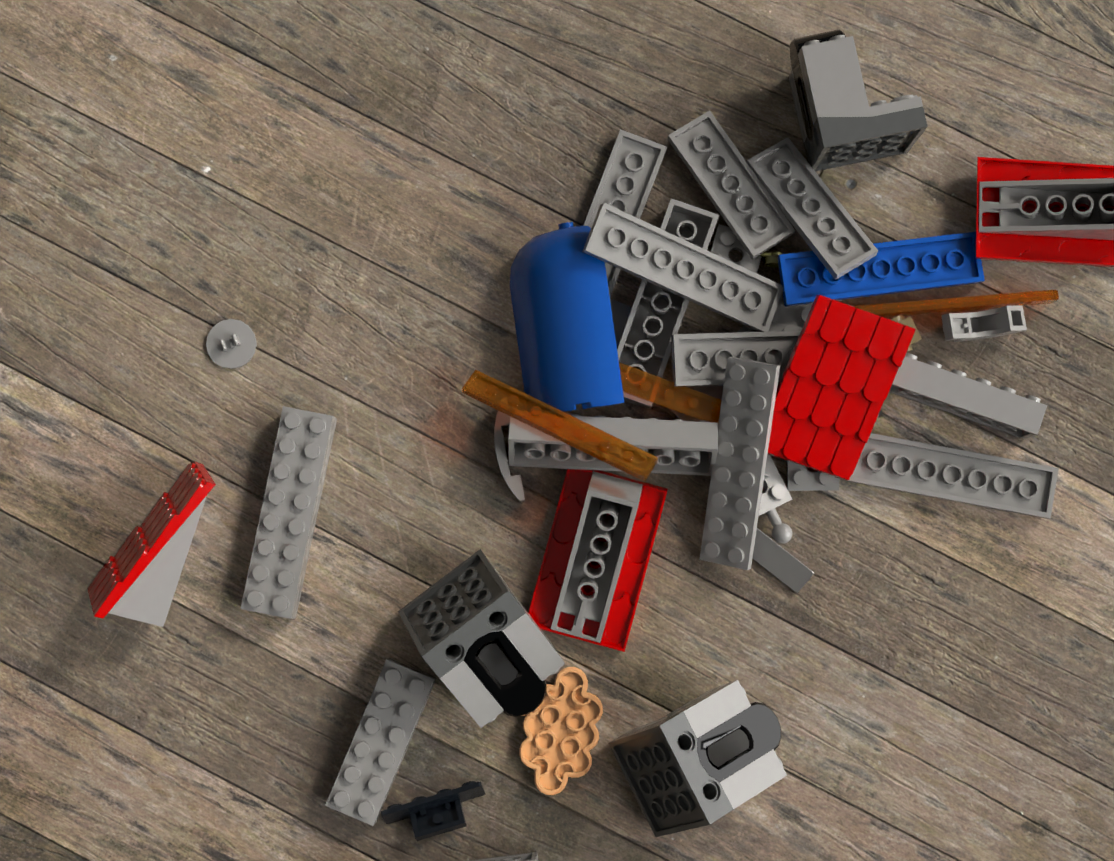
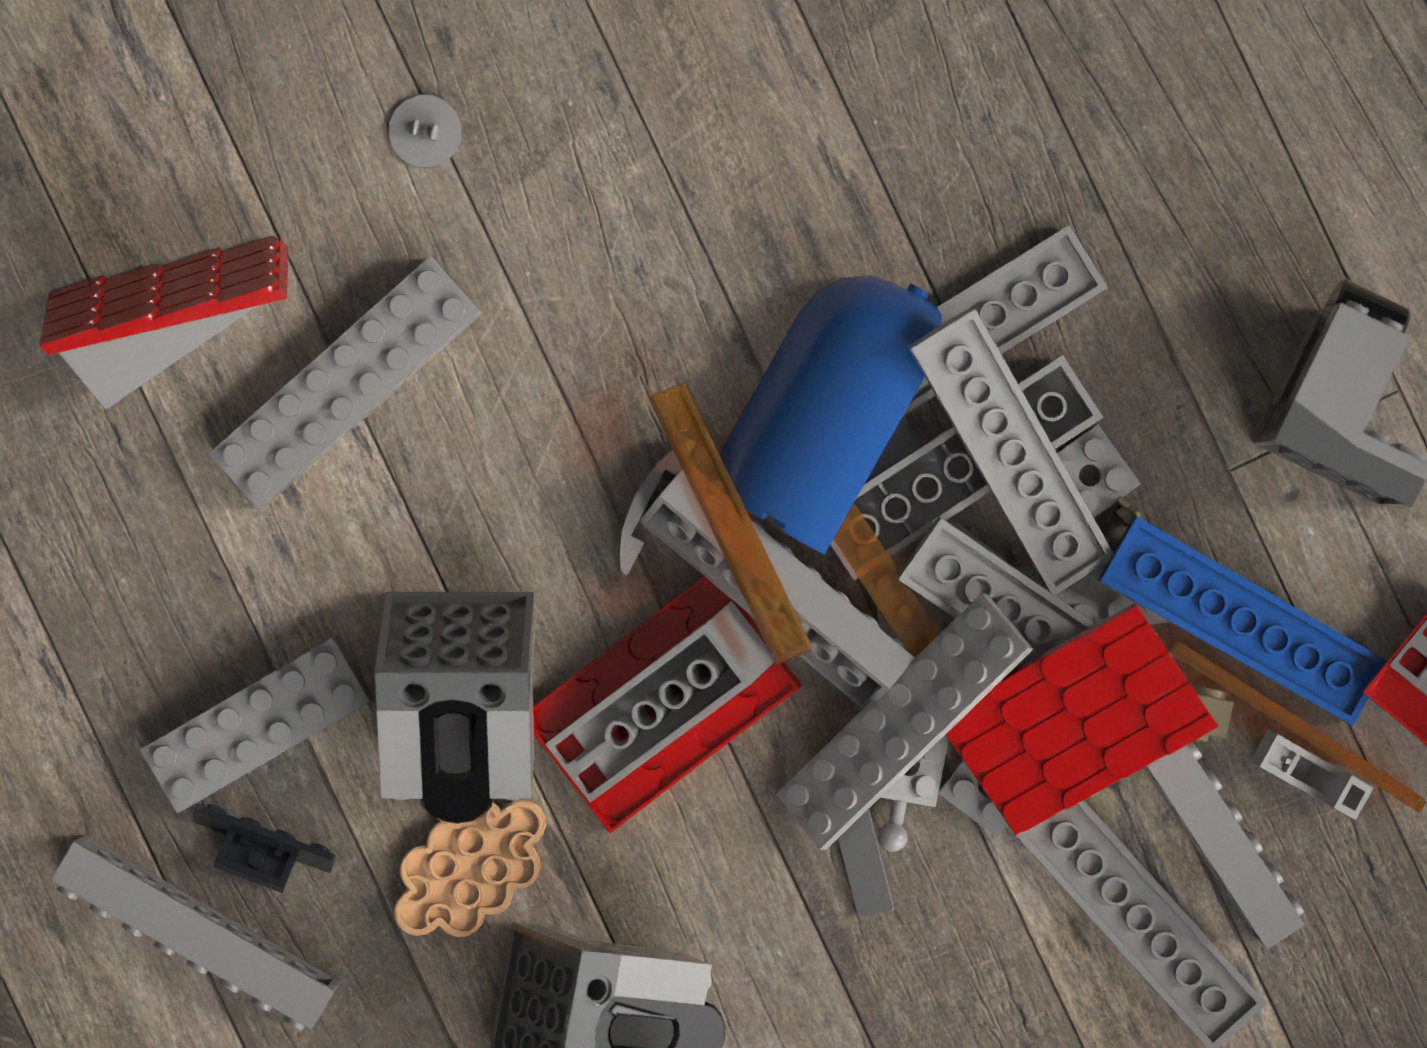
camera: 30 degrees right, 5 degrees up
(731, 184) = (1147, 389): light grey plate -> none
(812, 208) = (1217, 489): light grey plate -> none

